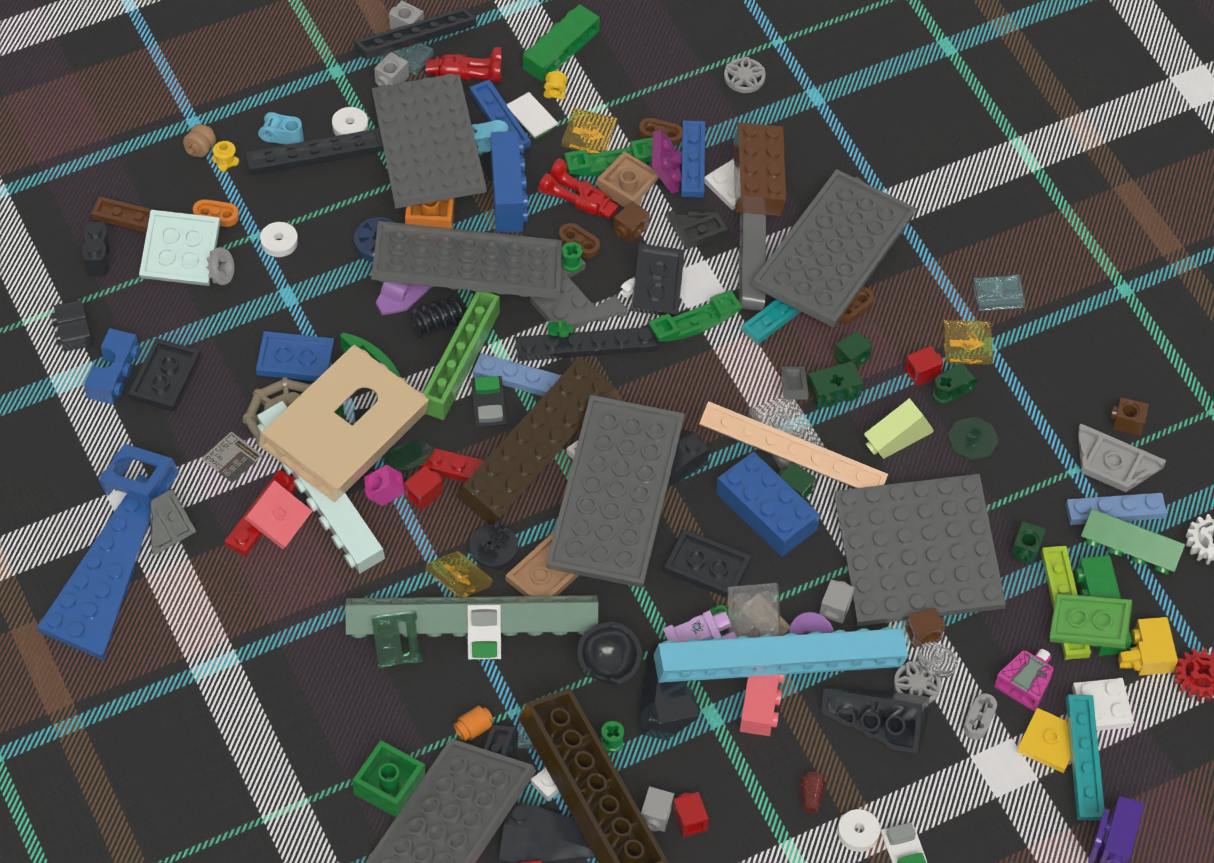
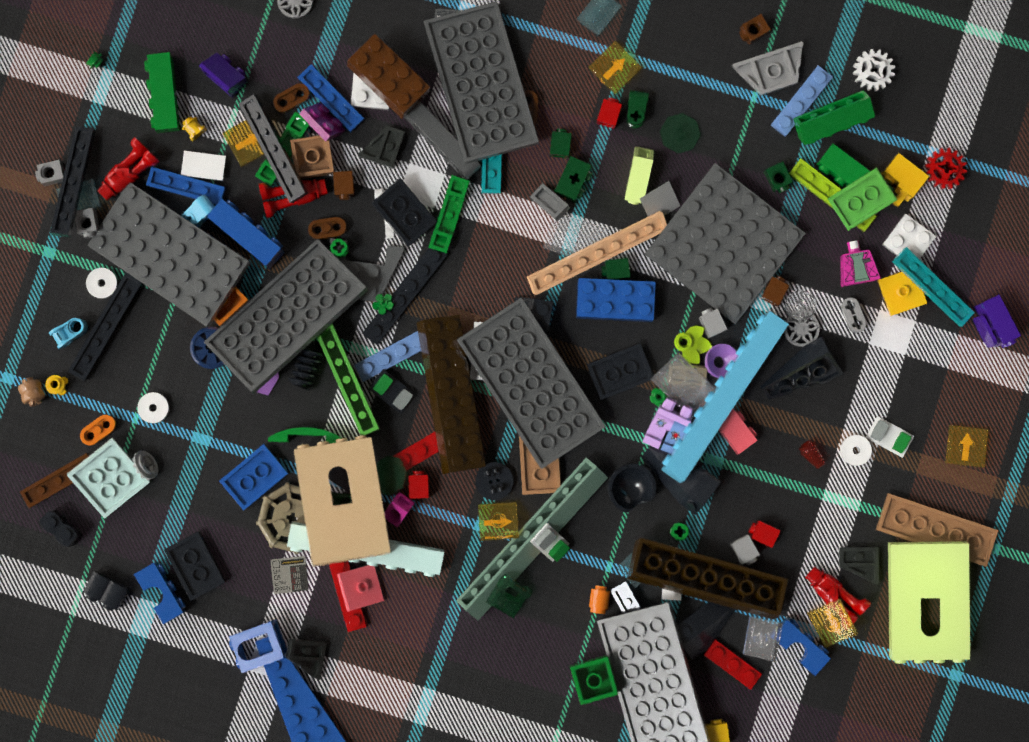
camera: 50 degrees left, 30 degrees up
(602, 144) = (273, 148): none -> plate
(625, 67) = (223, 74): none -> dark purple slope
(803, 603) = (695, 344): none -> lime plate
(897, 462) = (660, 199): none -> light grey sticker

